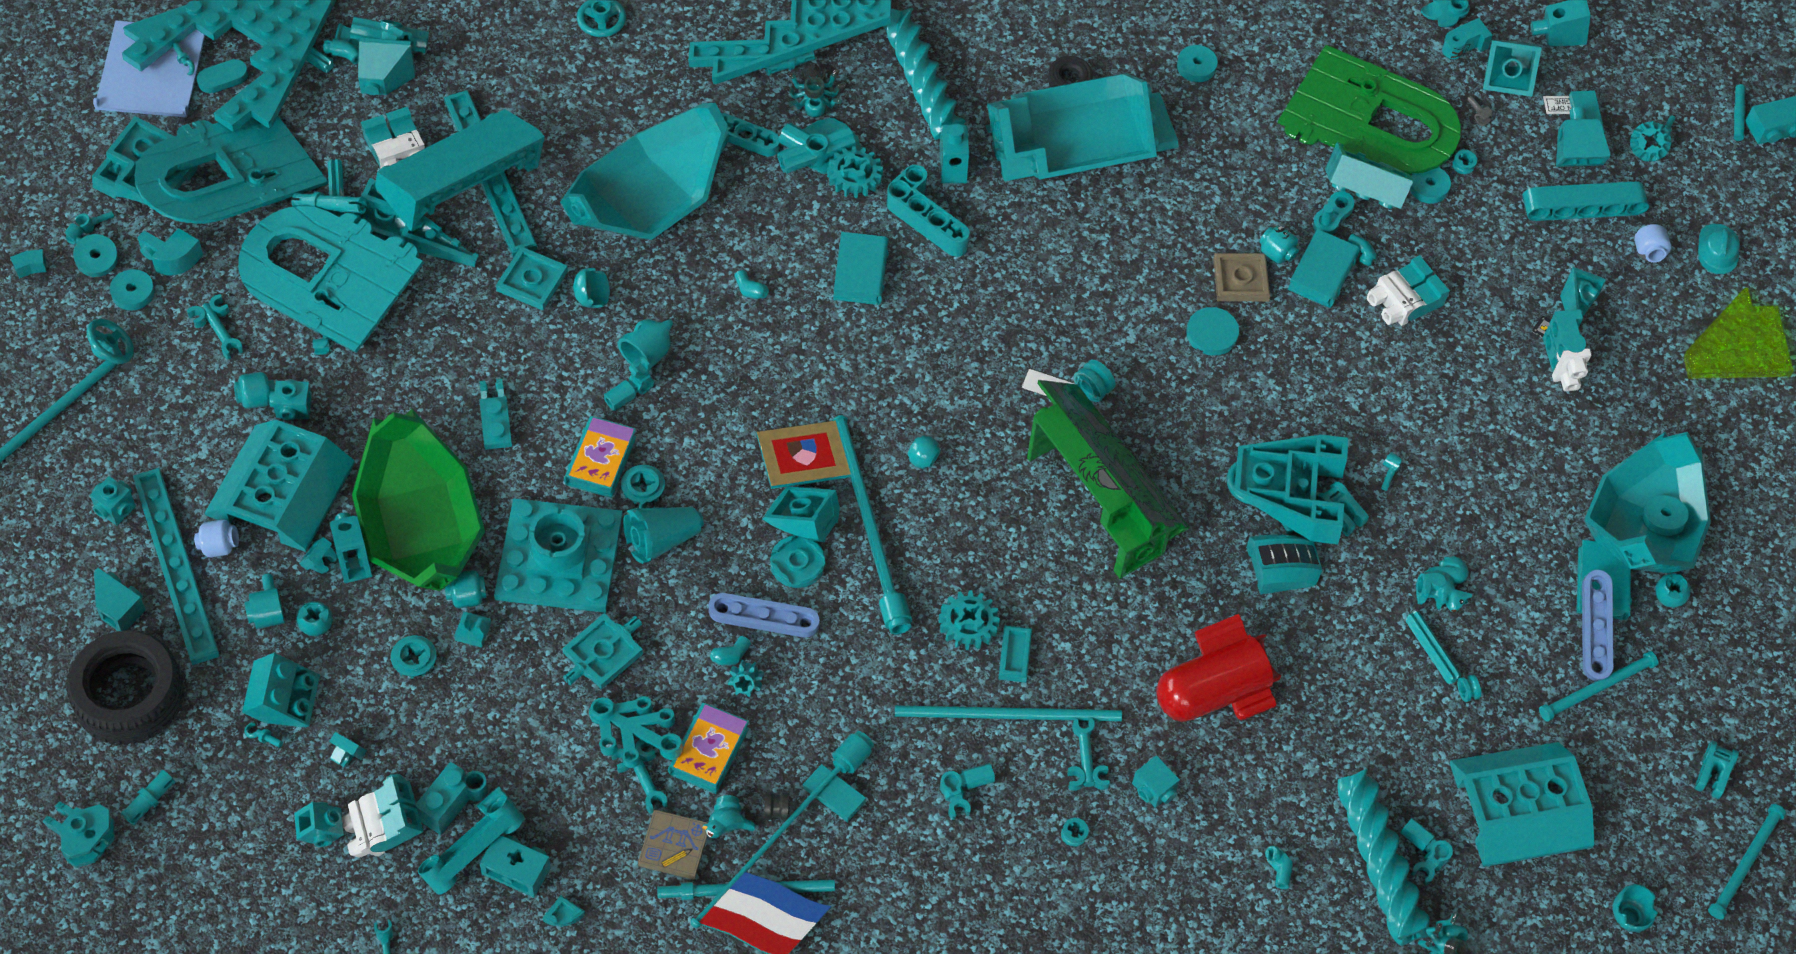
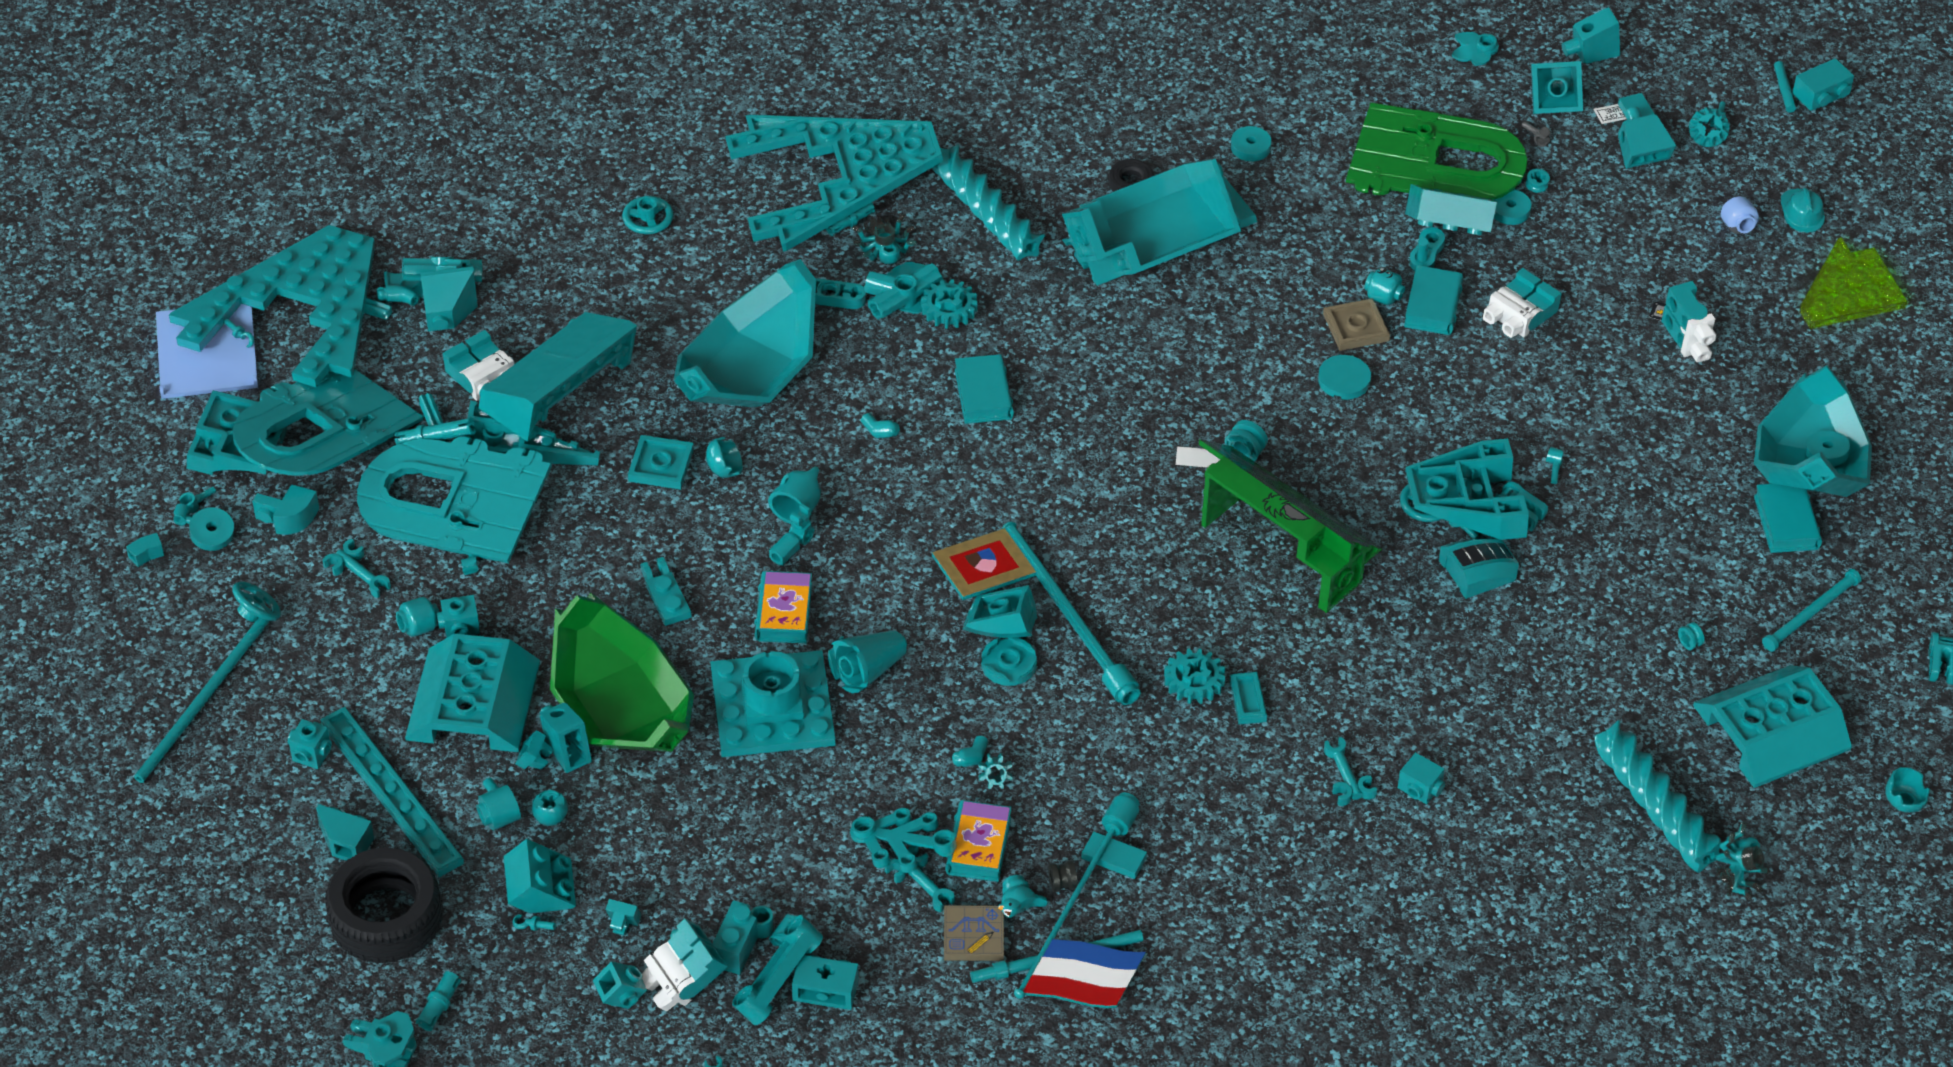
camera: 10 degrees left, 10 degrees down
(128, 280) = (259, 563): teal piece -> none
(217, 538) = (427, 756): light blue head -> none
(222, 76) = (282, 342): teal tile -> none
(417, 645) = (659, 811): teal gear -> none
(466, 590) = (693, 750): teal head -> none
(472, 629) = (709, 786): teal tile -> none
(497, 188) = (596, 389): teal tile -> none
(563, 913) = (885, 1016): teal tile -> none
(602, 651) = (846, 777): teal plate -> none
(652, 478) = (840, 616): teal gear -> none
(764, 615) = (993, 713): medium blue plate -> none
(910, 204) = (1028, 328): teal beam -> none
(924, 452) = (1101, 537): teal piece -> none
(953, 784) = (1228, 822): teal bar -> none
(954, 144) = (1039, 256): teal torso -> none
(1007, 713) = (1257, 751): teal piece -> none
(1067, 834) = (1350, 843): teal bush -> none
(1227, 673) = (1460, 666): red piece -> none
(1282, 865) = (1563, 825): teal arm -> none
(1366, 249) = (1471, 278): teal arm -> none
(1433, 647) = (1645, 609): teal axle -> none
(1438, 851) = (1707, 783): teal bar -> none
(1439, 584) = (1635, 552): teal animal -> none
(1466, 38) = (1504, 70): teal leg -> none
(1581, 290) = (1685, 266): teal slope -> none
(1585, 201) = (1664, 191): teal beam -> none
(1597, 625) = (1794, 554): medium blue plate -> none
(1672, 598) = (1855, 512): teal piece -> none

